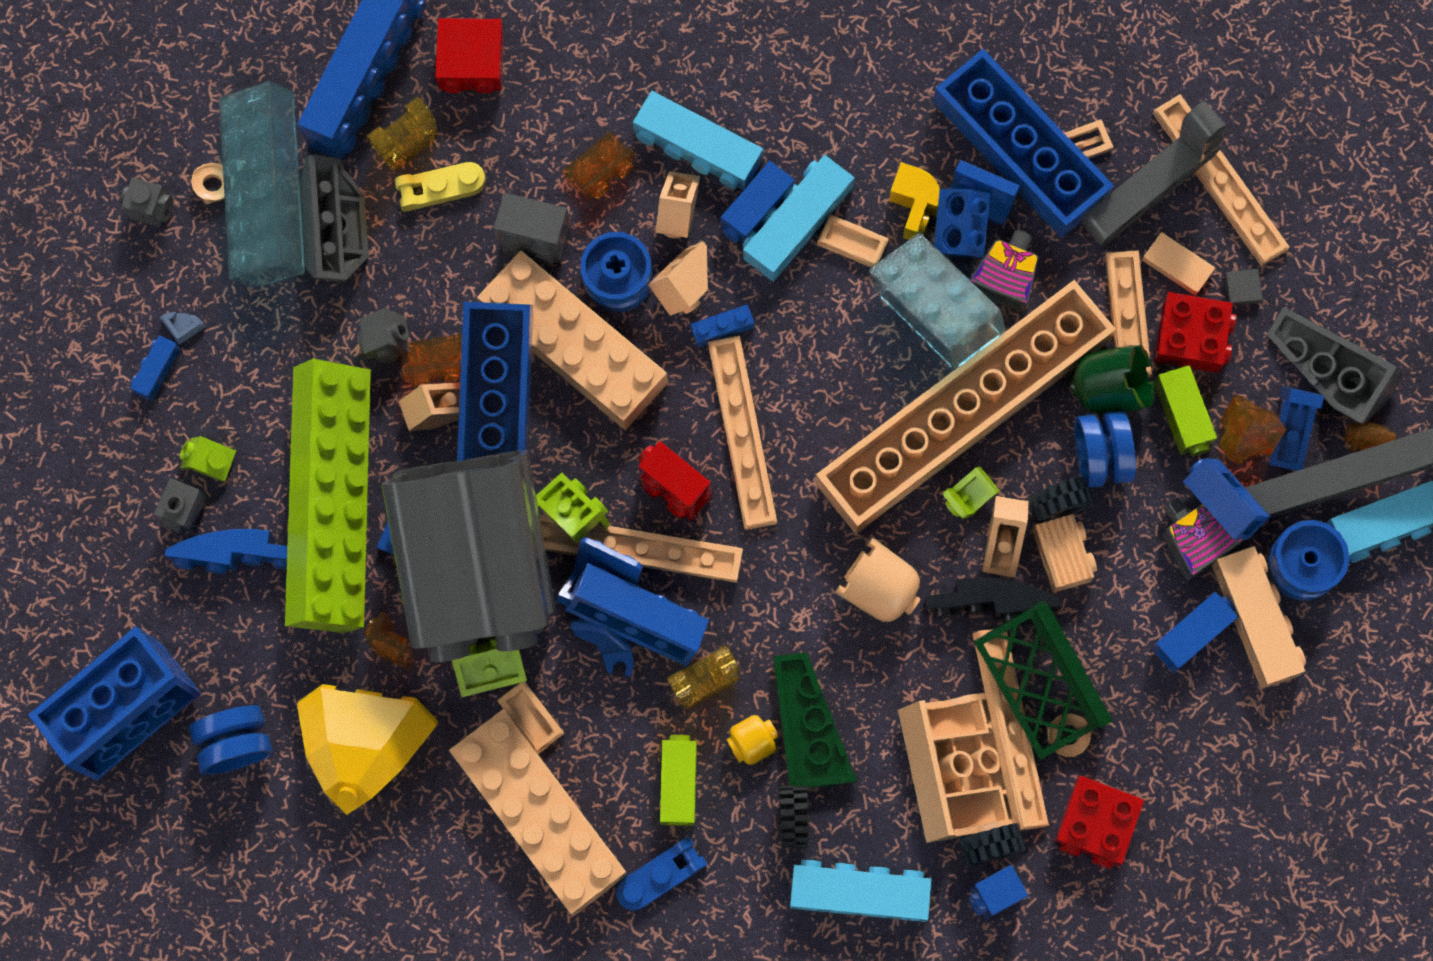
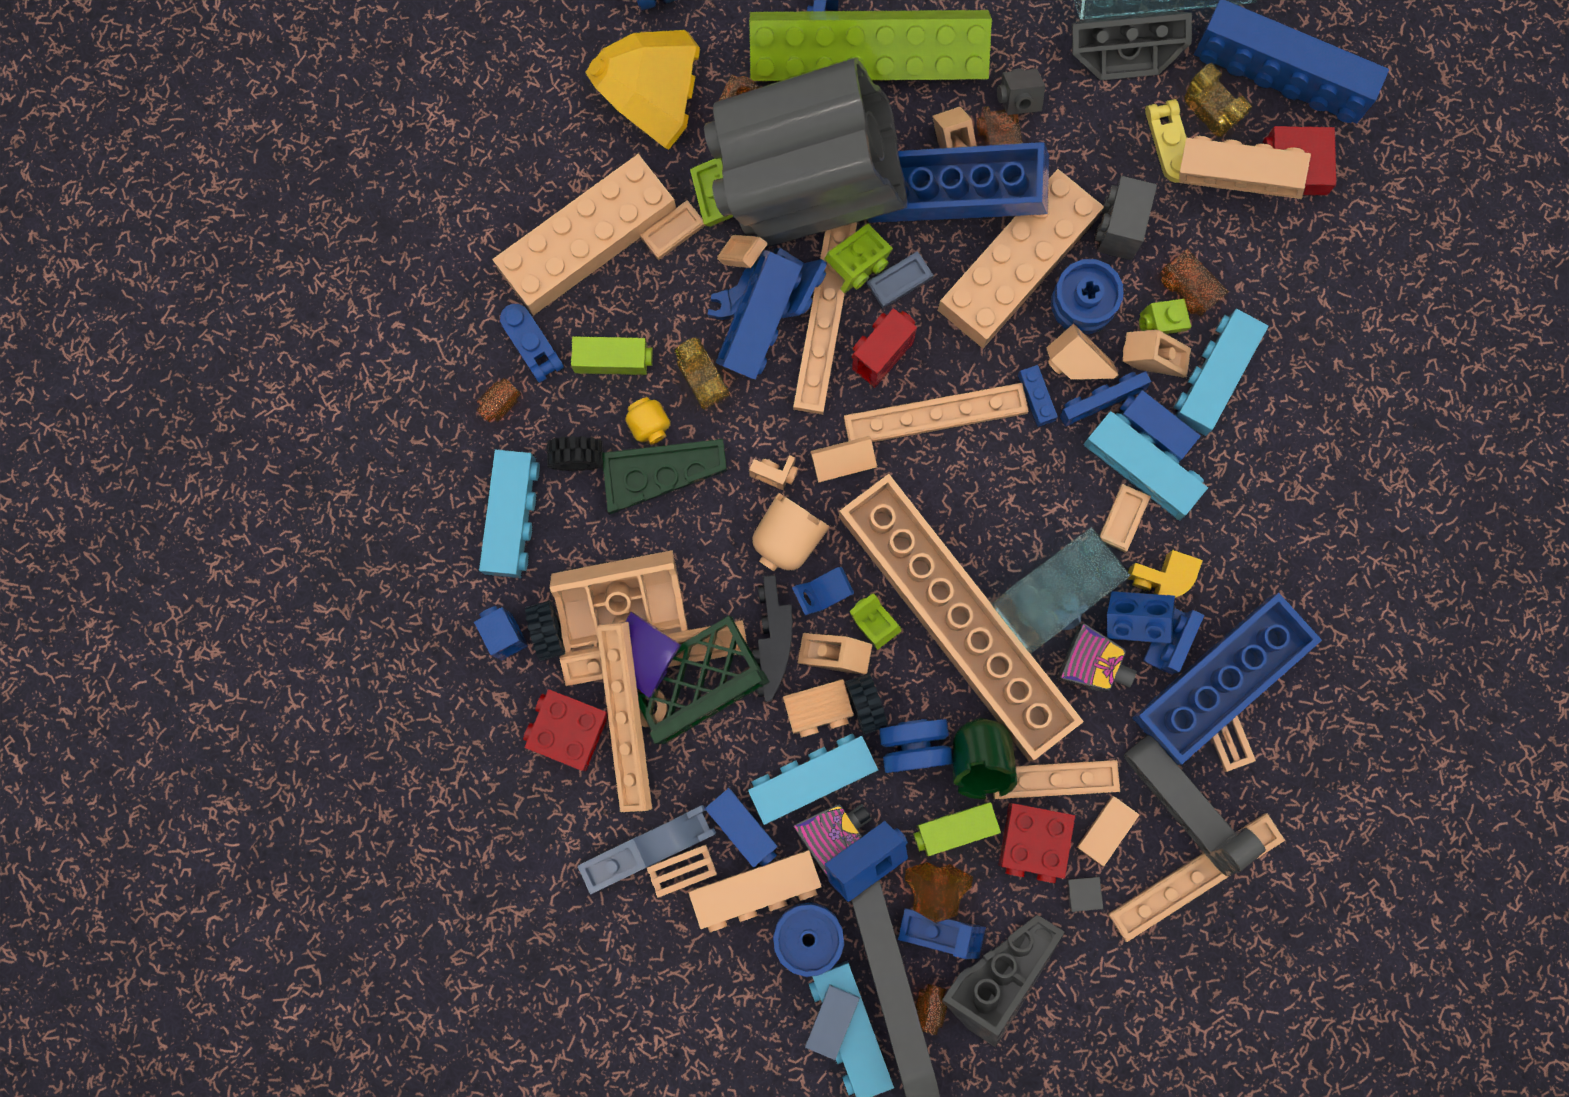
camera: 90 degrees right, 5 degrees up
(482, 107) = (1244, 167): none -> light nougat brick
(562, 634) = (742, 251): none -> light nougat tile
(591, 468) = (900, 279): none -> sand blue tile
(640, 195) = (1166, 317): none -> lime bracket
(725, 257) = (1104, 397): none -> blue plate
(730, 909) = (497, 400): none -> clear orange brick
(793, 527) = (843, 459): none -> light nougat tile
(809, 607) = (769, 473): none -> light nougat bracket
(938, 546) = (824, 591): none -> blue bracket
(1015, 731) = (651, 653): none -> dark purple brick
(1083, 756) = (624, 717): none -> light nougat tile
(1140, 558) = (812, 780): none -> medium azure brick
(1222, 733) = (645, 850): none -> sand blue piece
(1255, 694) = (657, 880): none -> light nougat tile
(1392, 533) = (832, 1022): none -> sand blue tile

